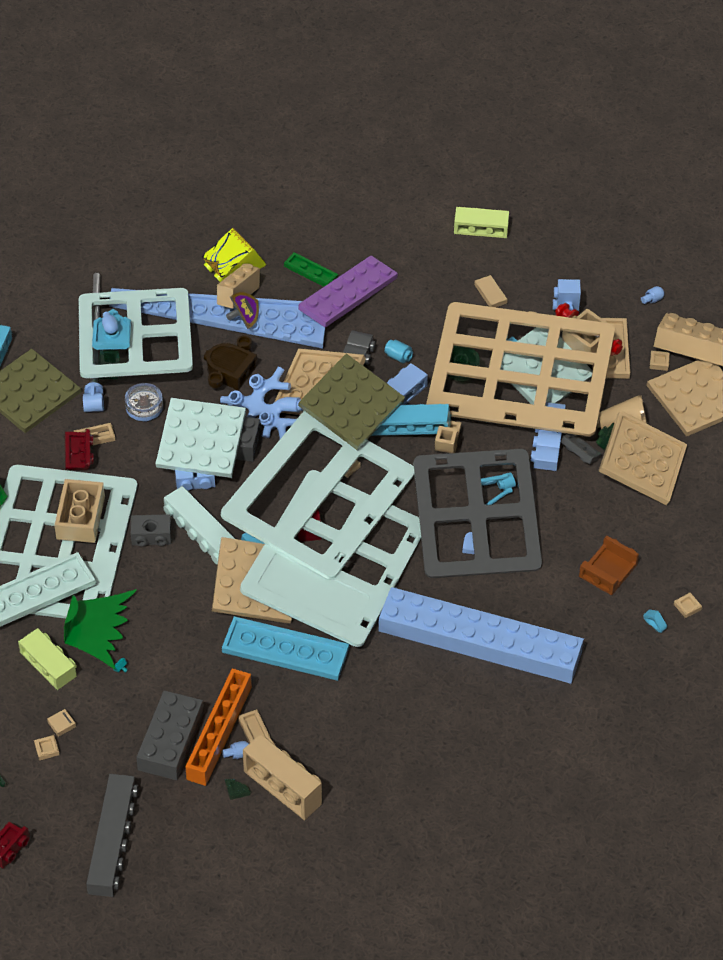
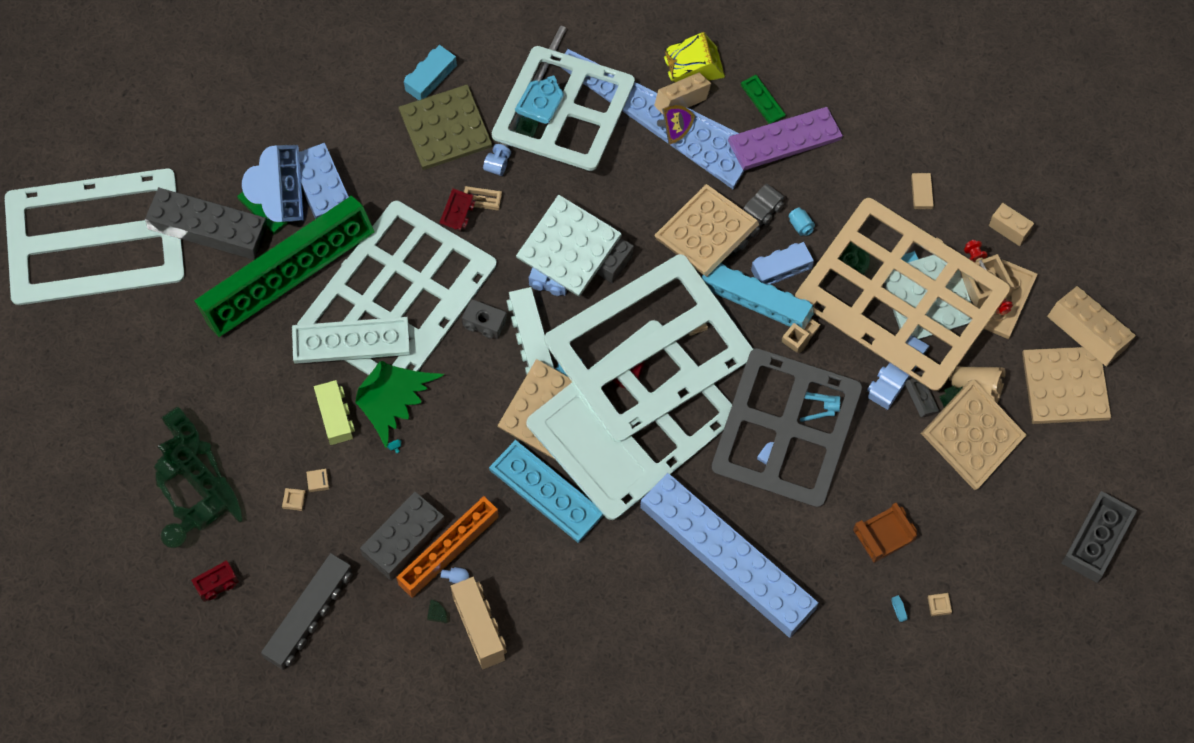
camera: 25 degrees right, 15 degrees up
(79, 510) = (427, 275): tan brick -> none
(109, 323) = (540, 92): light blue cylinder -> none
(143, 402) = (540, 182): clear piece -> none
(230, 363) = (638, 173): dark brown piece -> none
(253, 725) = (481, 561): tan tile -> none
(268, 413) = (649, 241): light blue plant -> none
(351, 401) = (723, 265): olive plate -> none
(481, 222) = (950, 111): yellowish green brick -> none
(567, 292) = (988, 230): light blue brick -> none
(589, 287) = (1011, 224): none -> tan brick
(653, 295) = (1078, 257): light blue cylinder -> none
(659, 360) = (1047, 331): tan tile -> none

